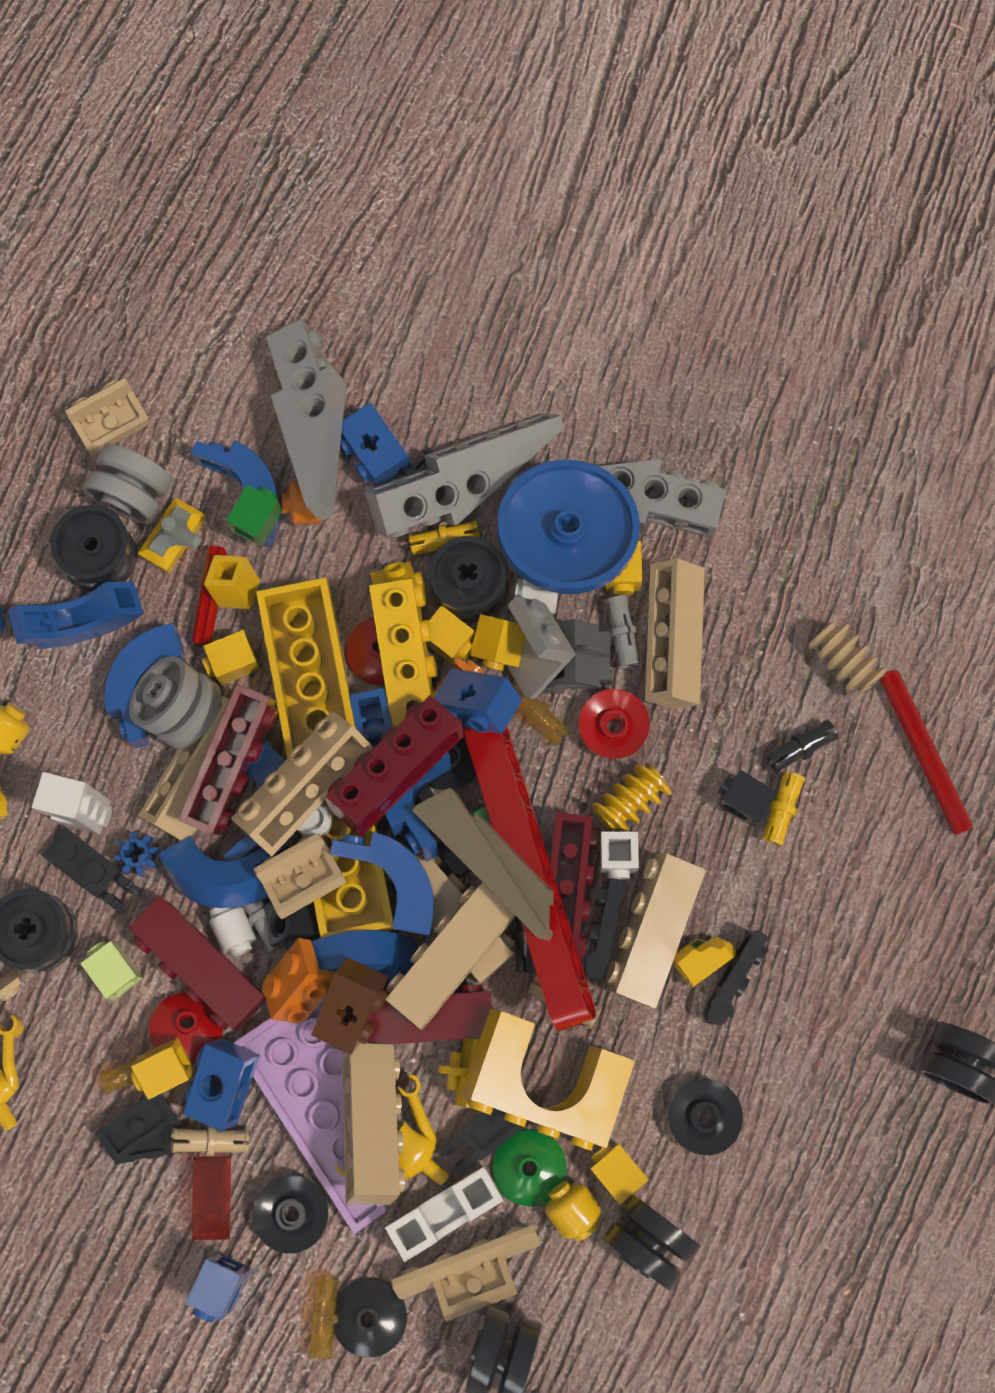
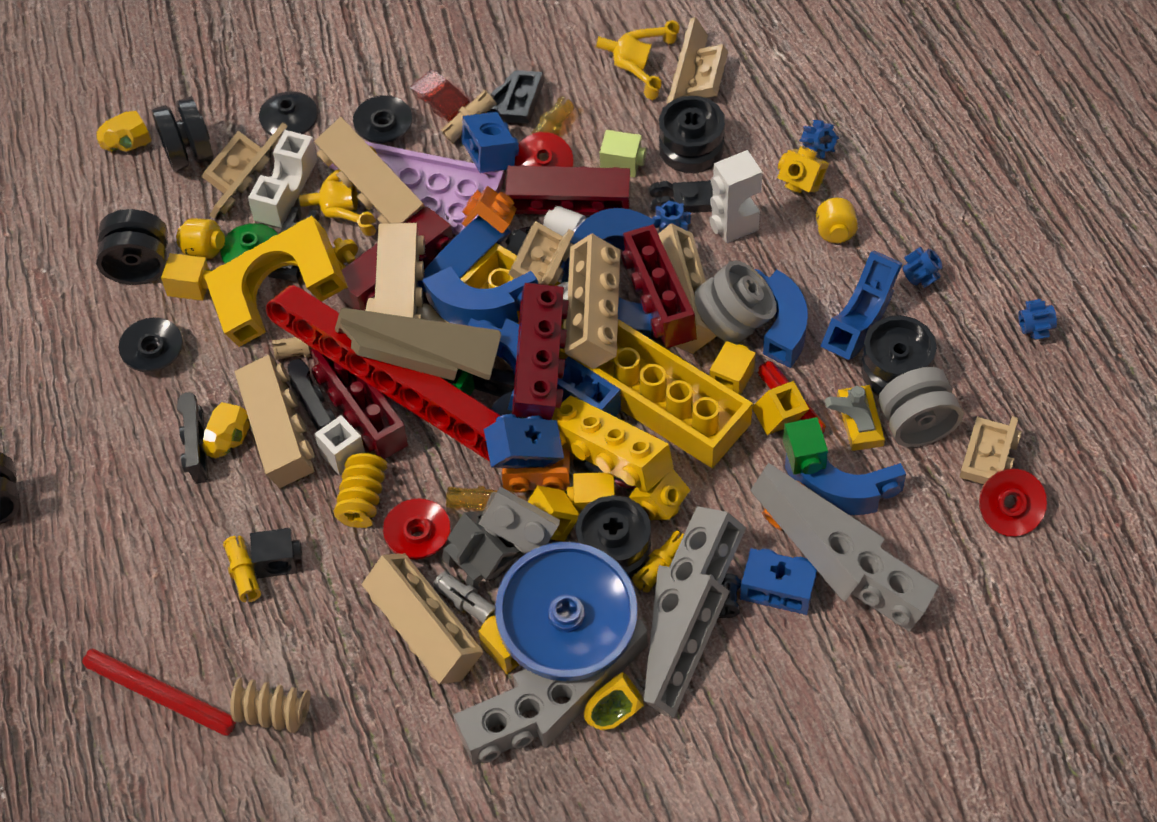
camera: 140 degrees right, 20 degrees down
(138, 361) = (1028, 506): none -> red dish
(161, 1068) = (531, 118): yellow brick -> none
(217, 1287) = (391, 53): brick -> none
(323, 1317) = (316, 92): clear yellow pin -> none
(350, 1005) = (437, 210): reddish brown brick -> none
(584, 446) = (613, 703): none -> rock
(801, 746) = (260, 621): black pin -> none

